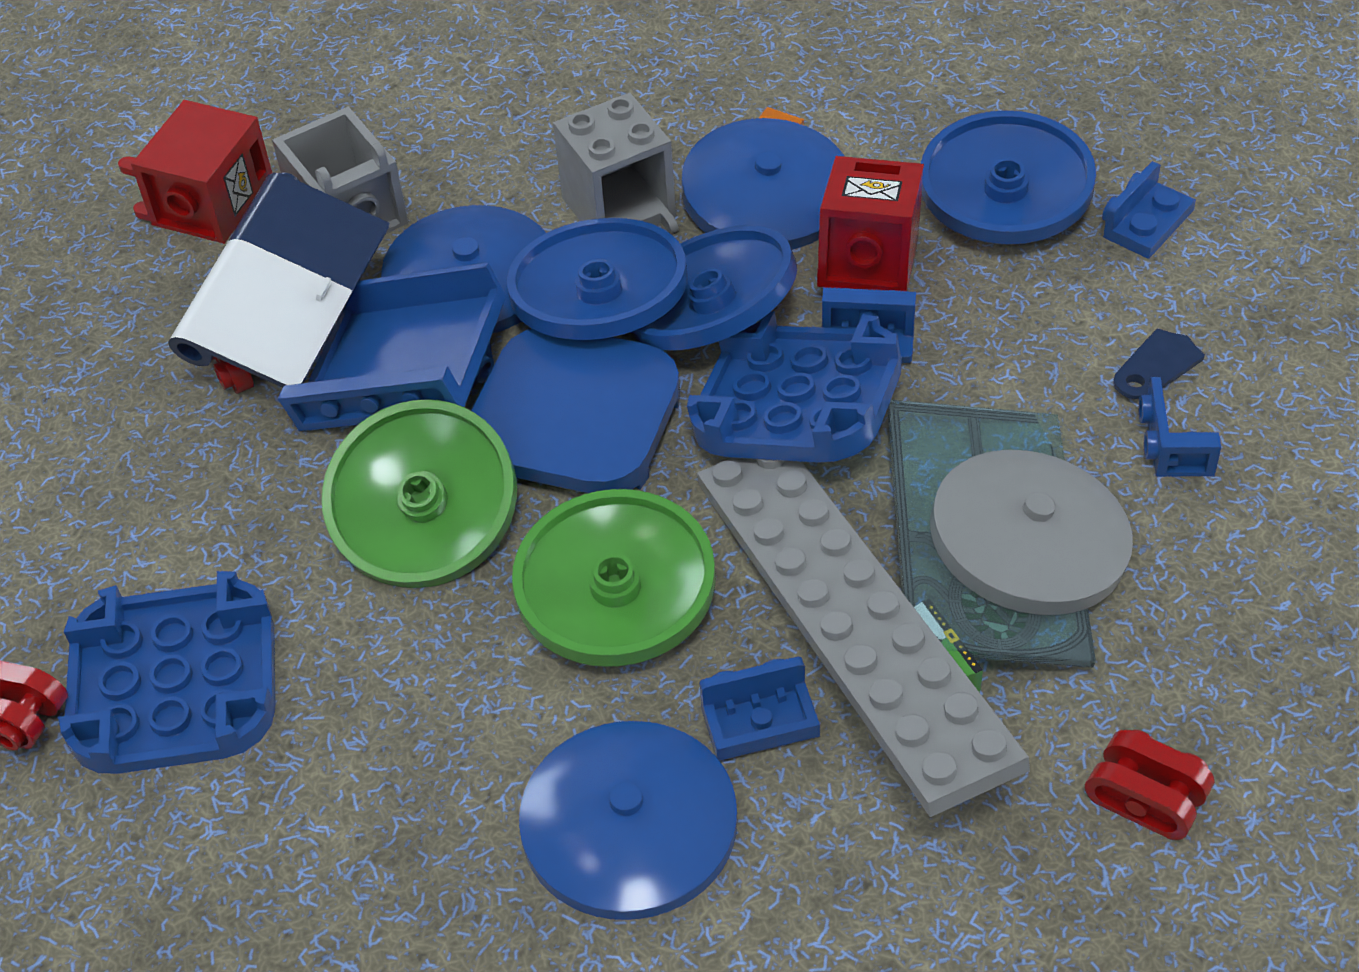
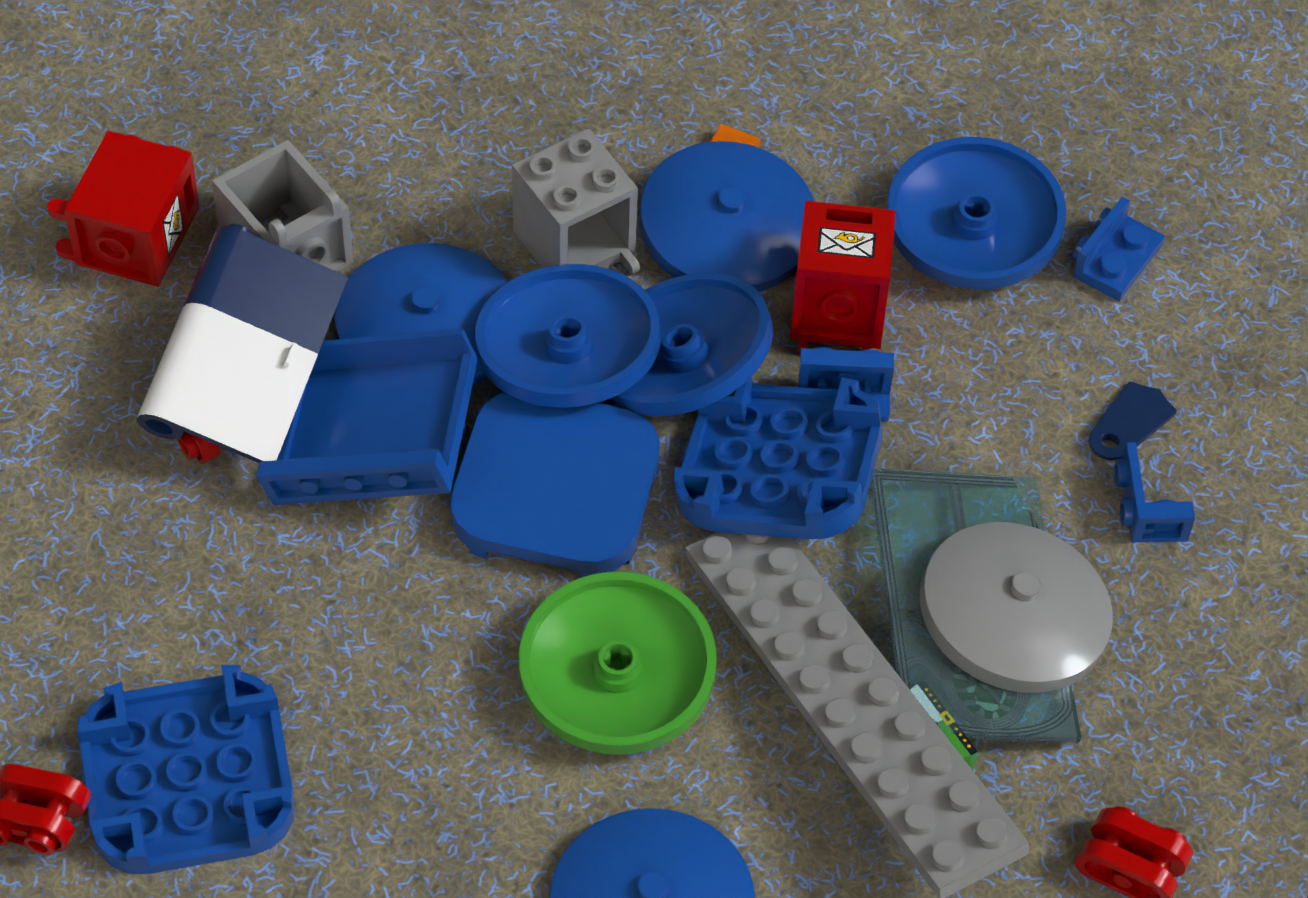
camera: 10 degrees left, 5 degrees up
(419, 493) = (413, 577): bright green dish -> none
(758, 708) = (767, 793): blue bracket -> none

